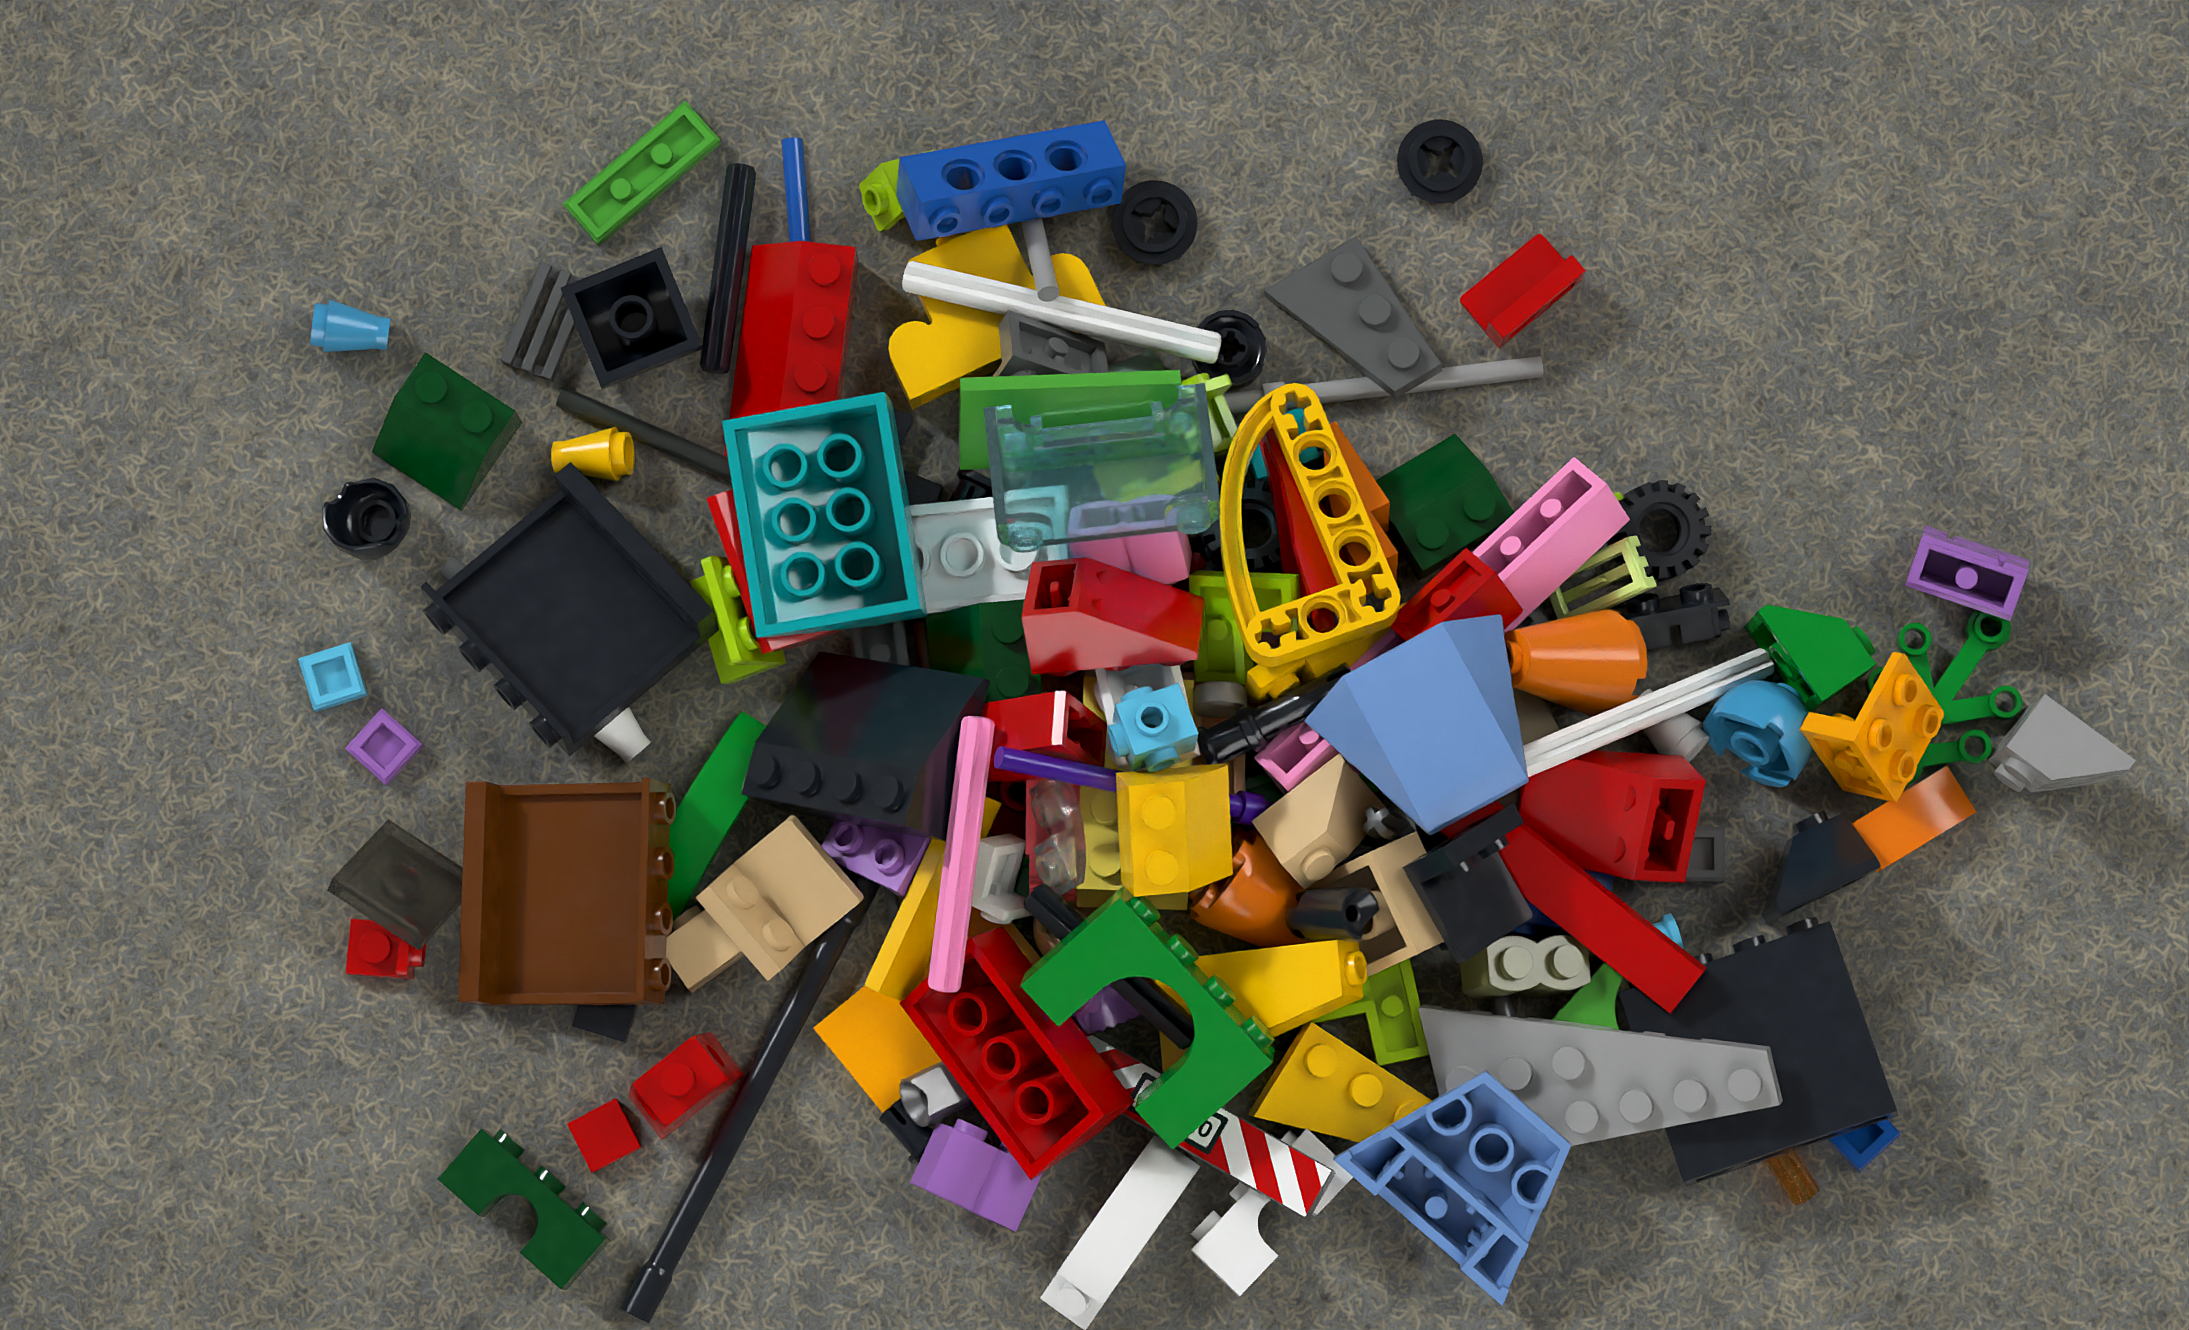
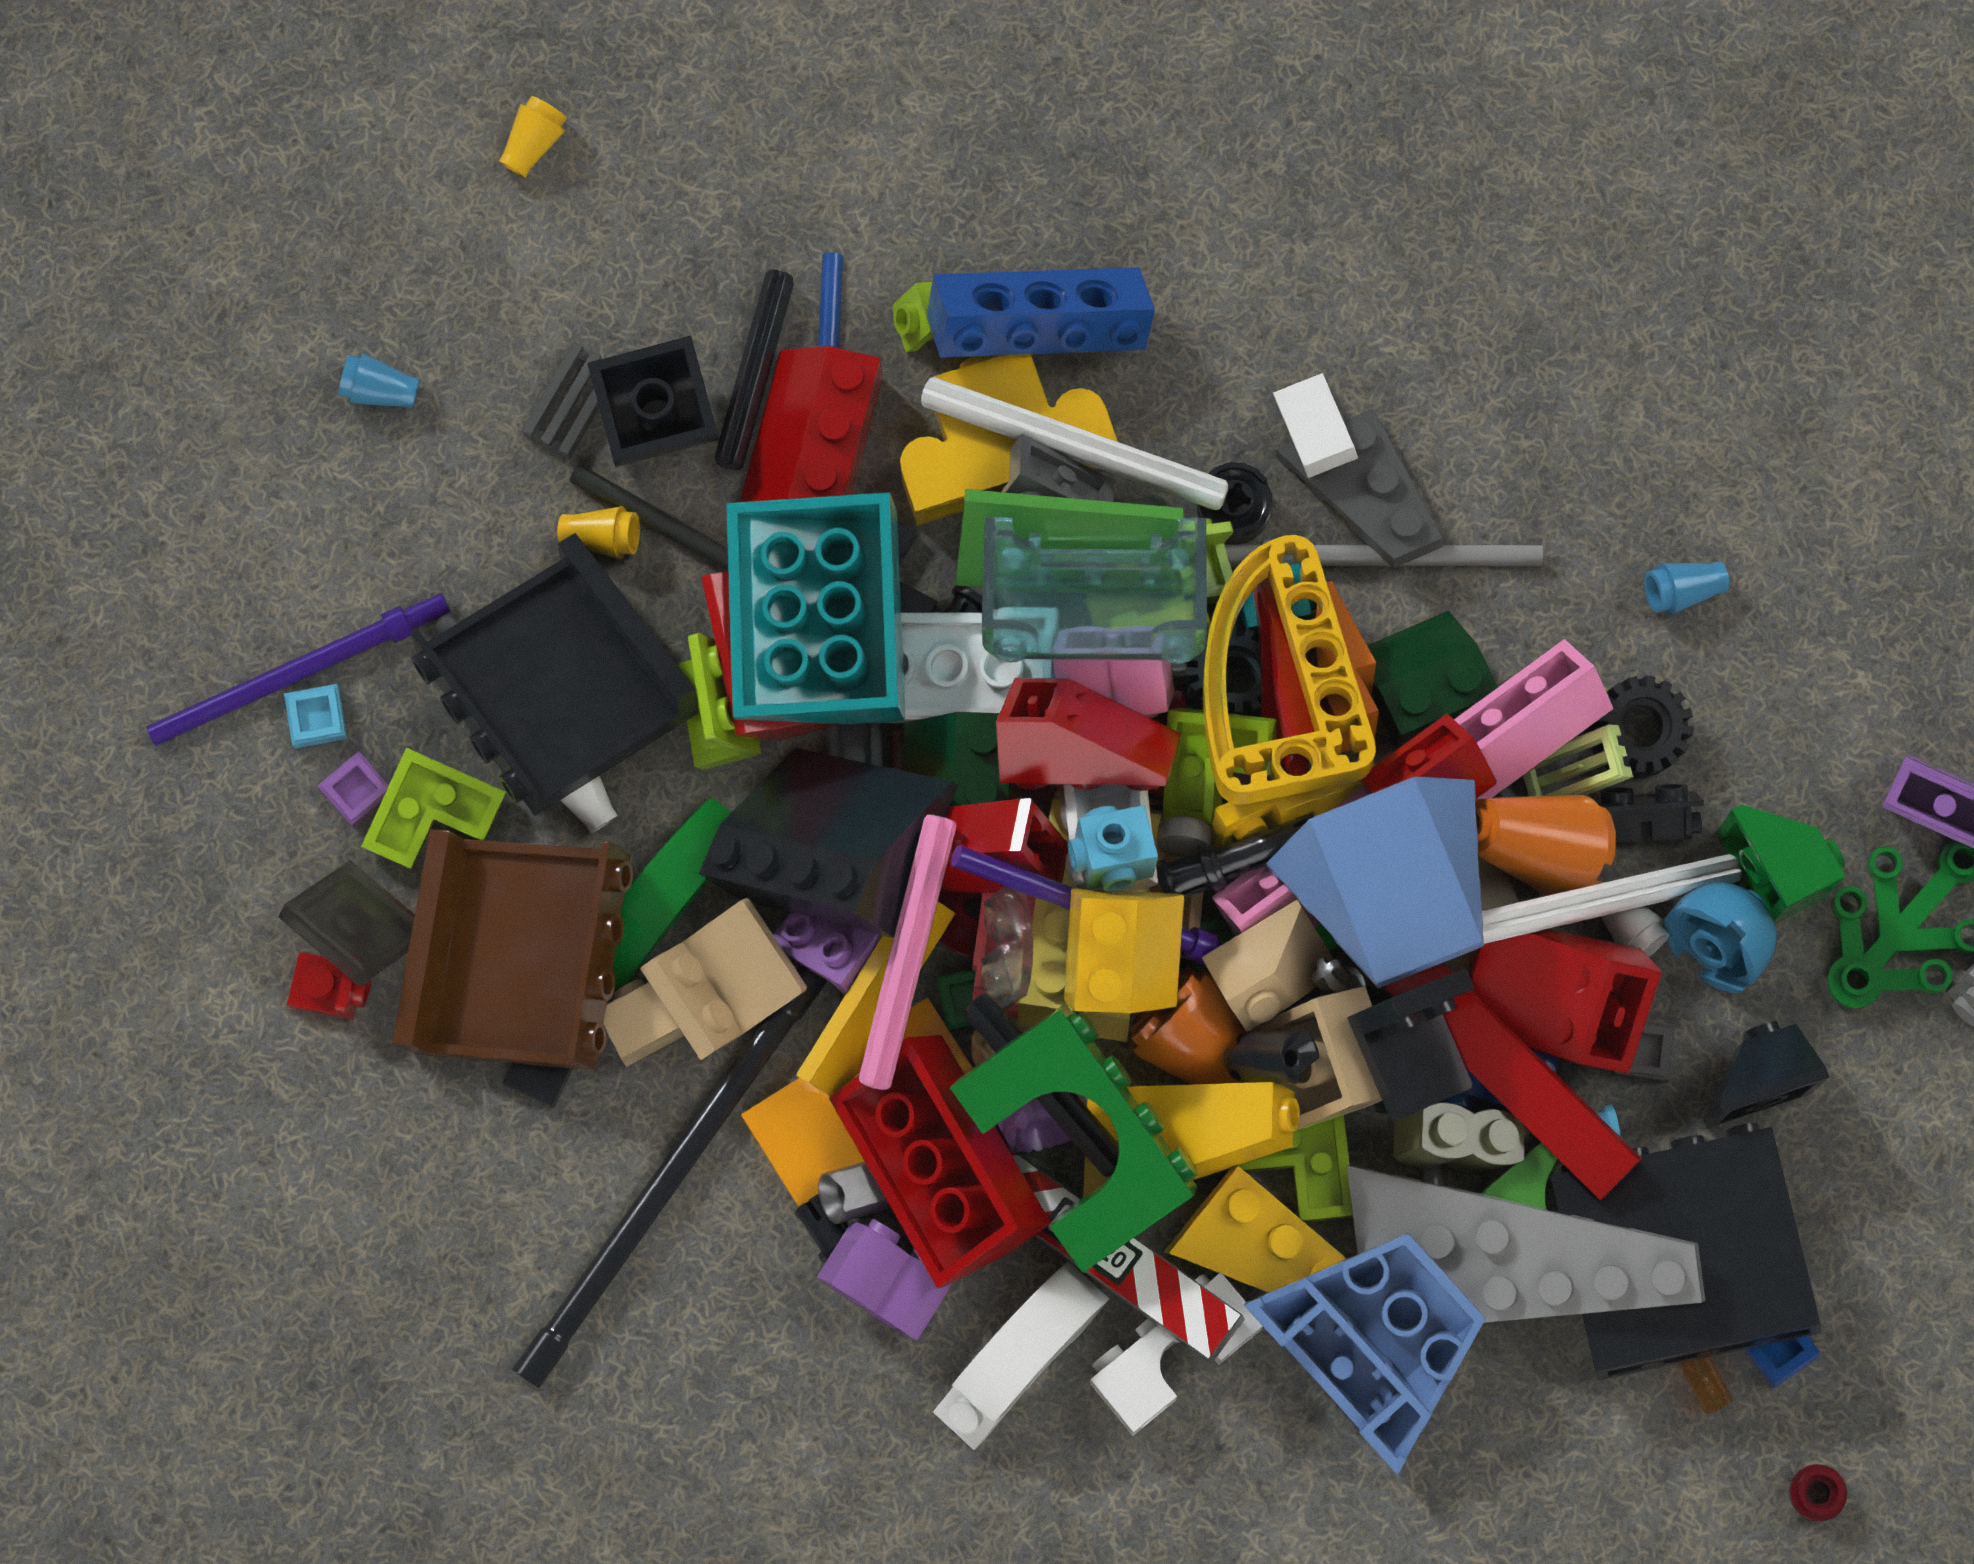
camera: 10 degrees right, 5 degrees down
(386, 519) = (374, 547): black hair -> none
(400, 575) = (395, 625): none -> dark purple bar
(445, 431) = (458, 491): dark green slope -> none
(457, 743) = (428, 793): none -> lime plate
(469, 51) = (532, 135): none -> yellow cone
(564, 1236) = (402, 1217): dark green arch -> none
(604, 1135) = (519, 1196): red tile -> none
(642, 173) = (682, 270): bright green tile -> none
(684, 1083) = (604, 1152): red torso -> none
(996, 878) = (940, 986): white bracket -> none
(1040, 259) = (1059, 390): light grey bar -> none
(1145, 200) = (1170, 351): black gear -> none
(1300, 262) = (1315, 425): none -> white tile
(1438, 137) = (1463, 324): black gear -> none
(1521, 289) = (1530, 479): red panel -> none
(1684, 381) = (1682, 585): none -> dark azure cone
(1886, 740) = (1846, 956): light orange bracket -> none
(1916, 818) = (1868, 1039): orange slope -> none
(1929, 1269) = (1830, 1480): none -> dark red plate

